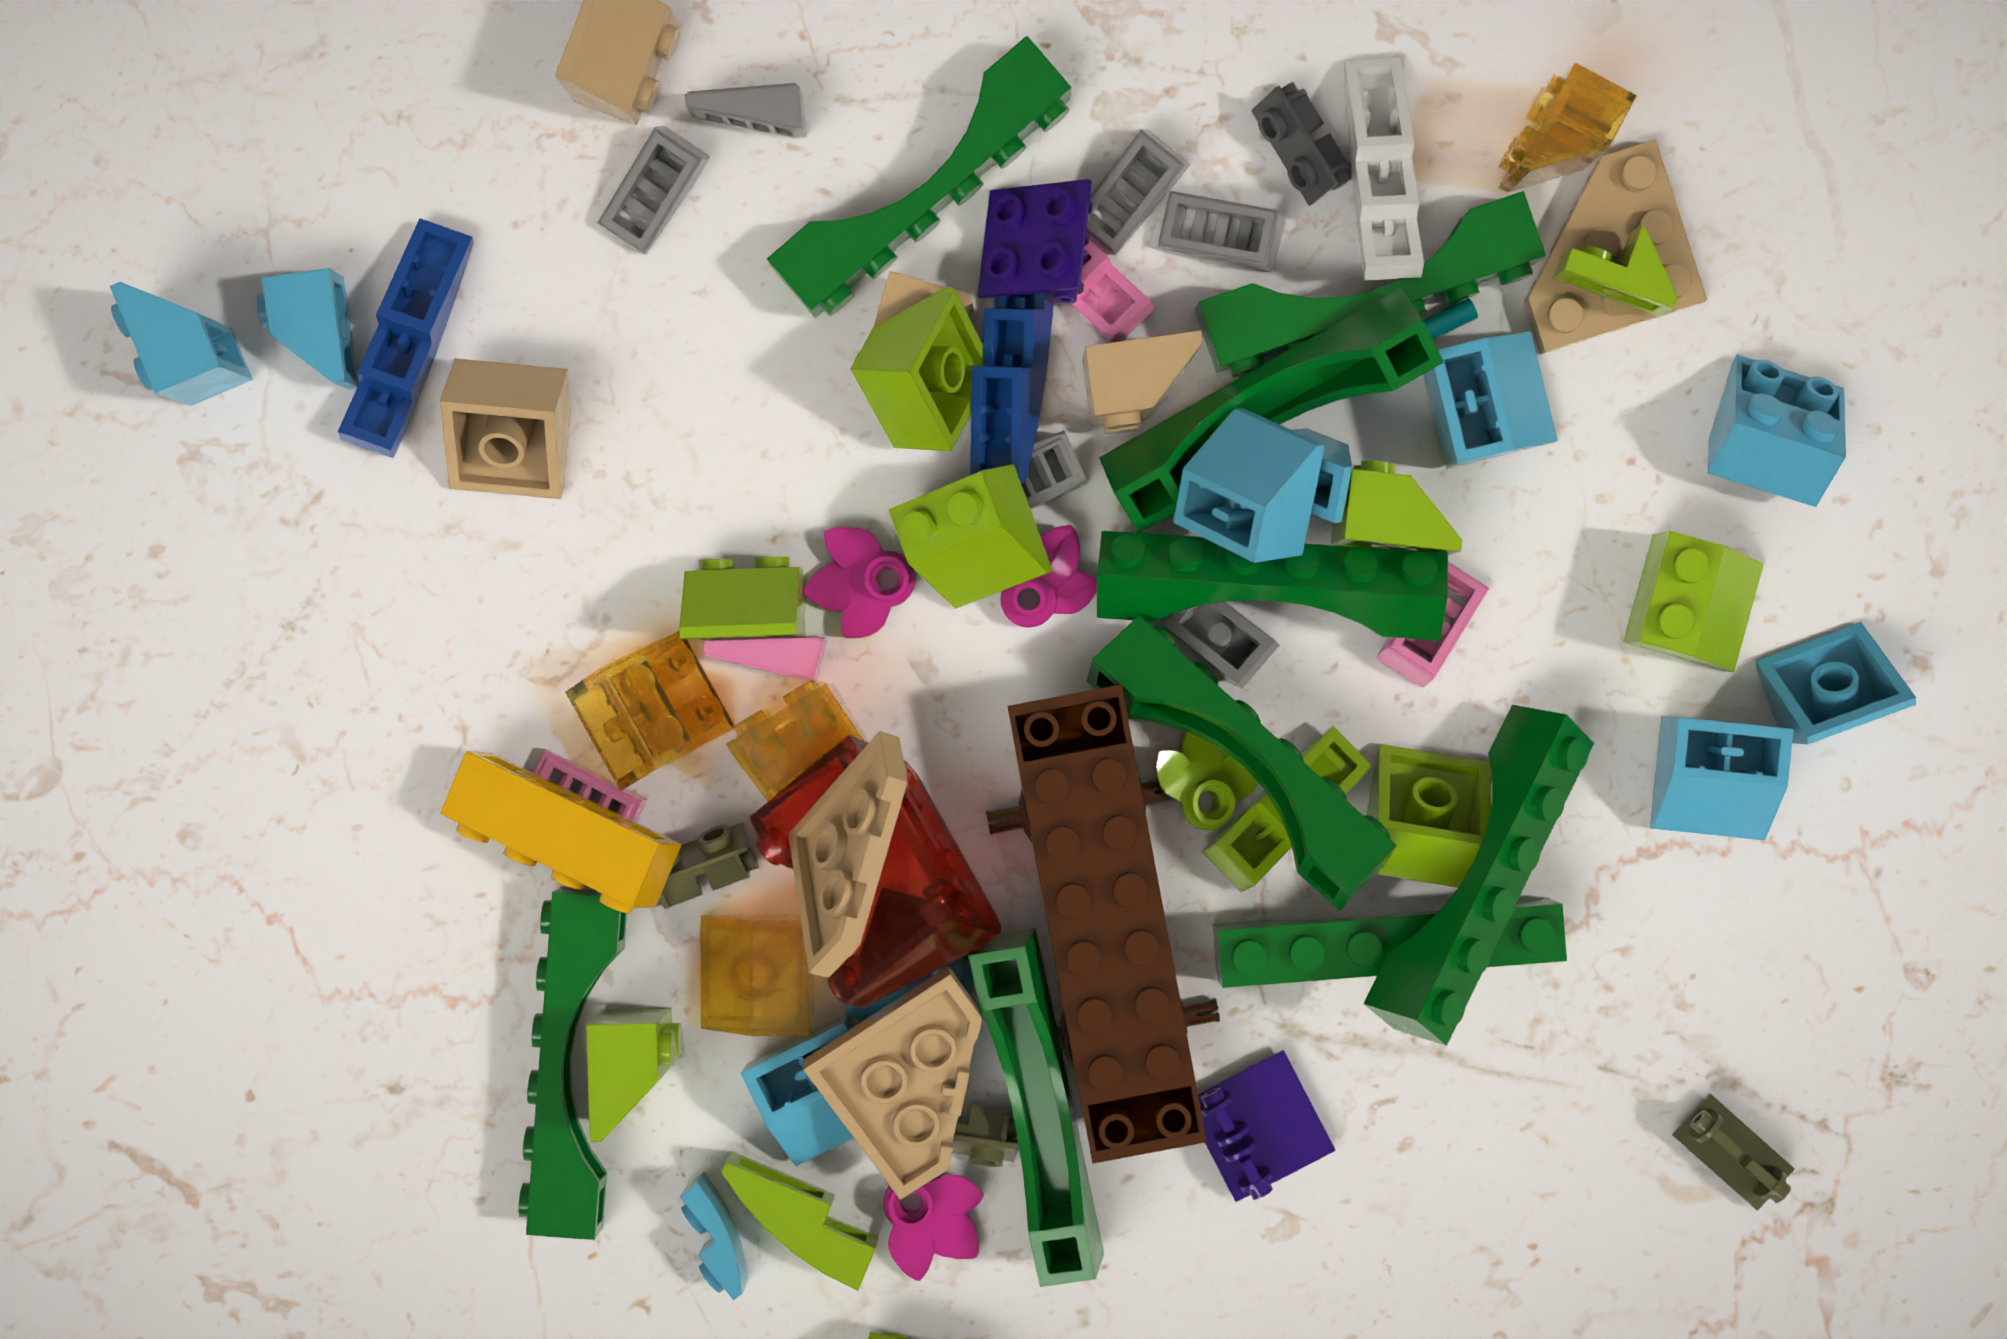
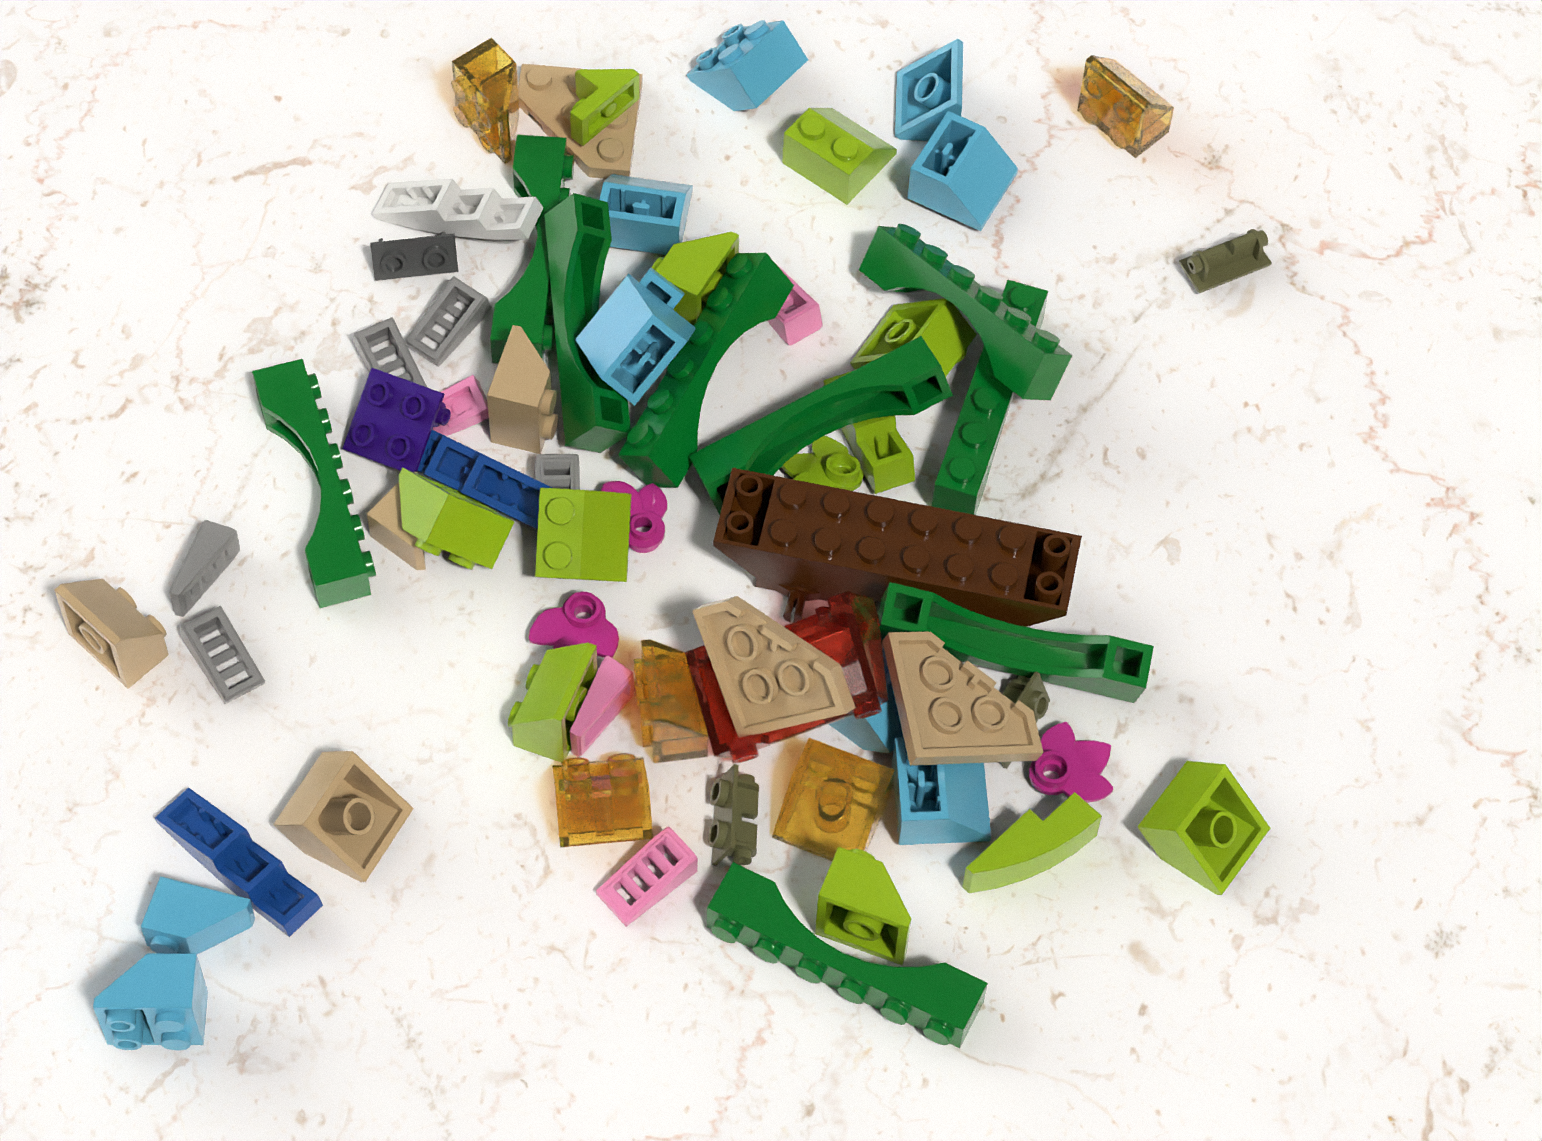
camera: 65 degrees left, 30 degrees down
(560, 831) = (662, 882): yellow brick -> none
(722, 1254) = (1036, 907): medium azure slope -> none
(1224, 640) = (732, 409): light grey slope -> none
(1261, 1127) = (1102, 522): dark purple hinge -> none
(1920, 941) = (1122, 105): none -> clear yellow slope

